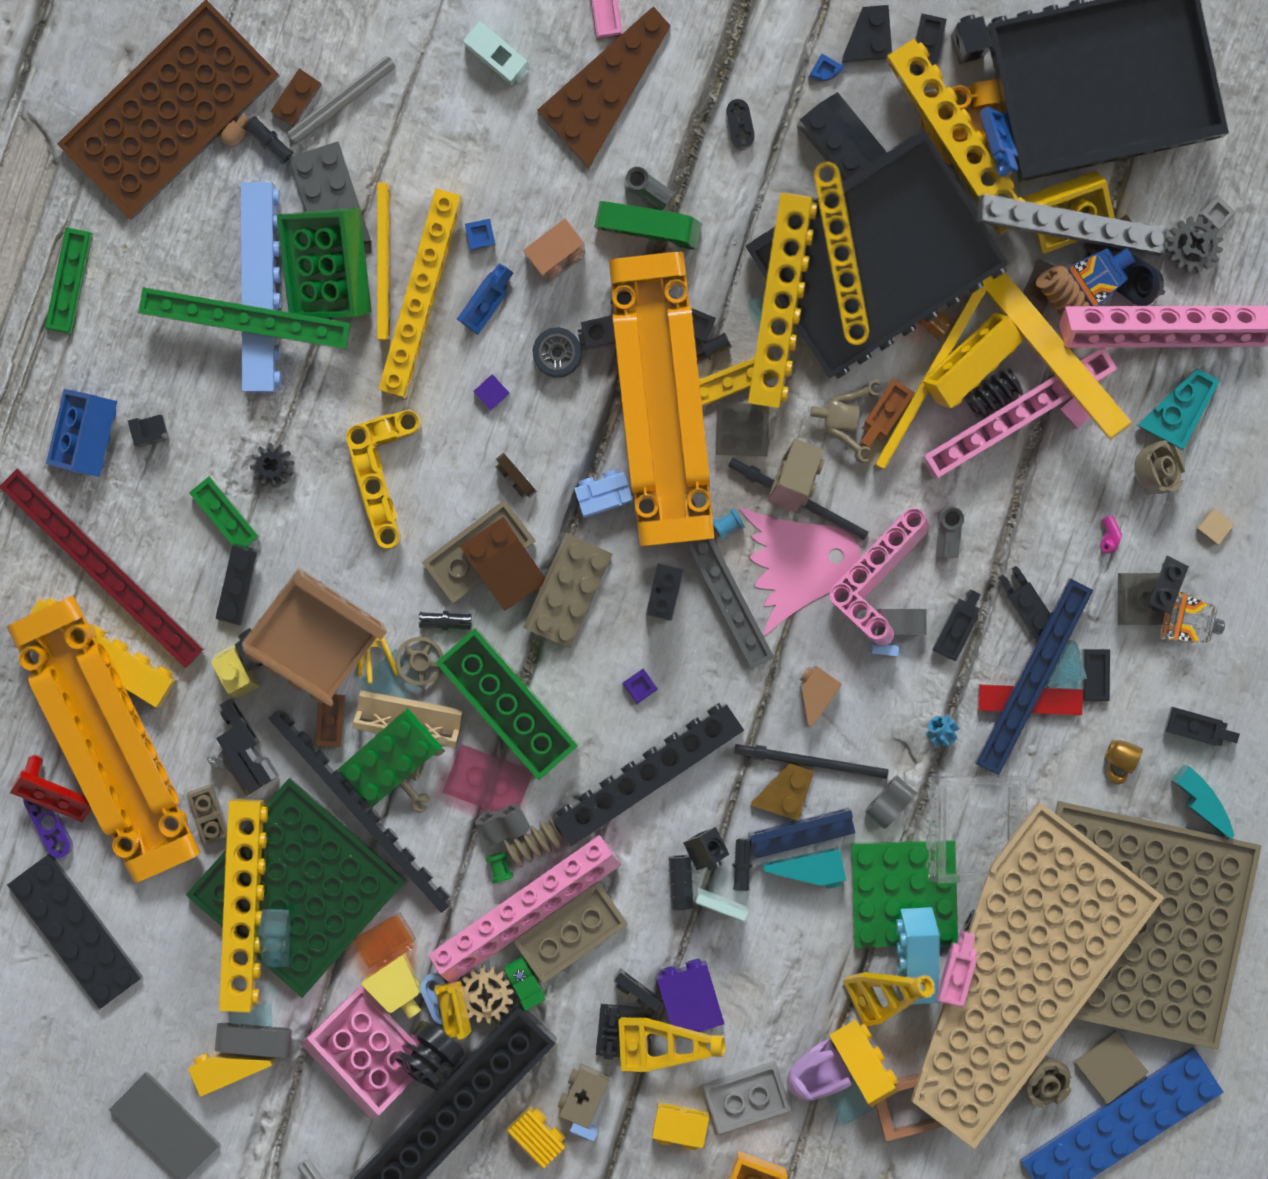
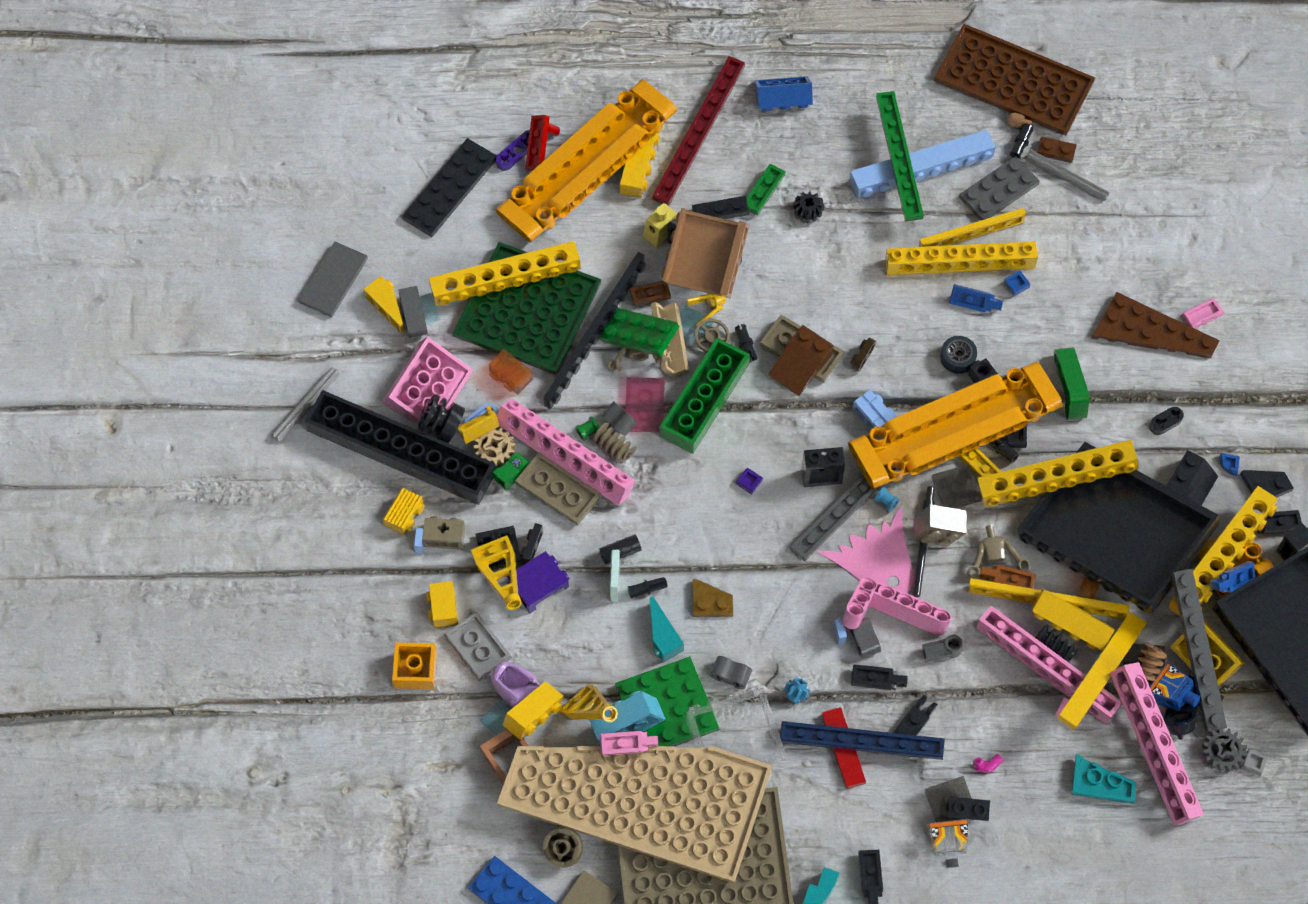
camera: 70 degrees right, 25 degrees down
(68, 280) = (878, 58): green tile -> none
(148, 430) = (799, 130): black panel -> none
(208, 814) = (563, 235): dark tan slope -> none
(239, 754) = (607, 245): black plate -> none
(275, 938) = (489, 299): clear light blue slope -> none
(324, 263) = (957, 194): green slope -> none
(369, 467) = (831, 264): yellow beam -> none
(395, 986) = (481, 387): light yellow torso -> none
(491, 392) = (913, 324): dark purple tile -> none
(496, 54) = (1141, 255): light aqua brick -> none
(555, 250) = (1027, 326): nougat brick -> none
(567, 590) = (798, 410): dark tan plate -> none
(576, 831) = (708, 523): black brick -> none
(651, 190) = (1096, 375): dark grey piece -> none
(706, 849) = (658, 556): black brick -> none
(760, 753) = (732, 575): black bar -> none
(802, 832) = (686, 619): dark blue fence -> none
(817, 692) = (790, 596): medium nougat slope -> none
(838, 266) = (1112, 489): yellow beam -> none
(1068, 667) = (877, 763): clear light blue slope -> none
(1097, 669) = (880, 789): black tile -> none
(1123, 756) = (828, 827): pearl gold piece -> none
(1159, 468) = (1052, 776): dark tan cylinder -> none
(1215, 526) = (1025, 838): tan tile -> none

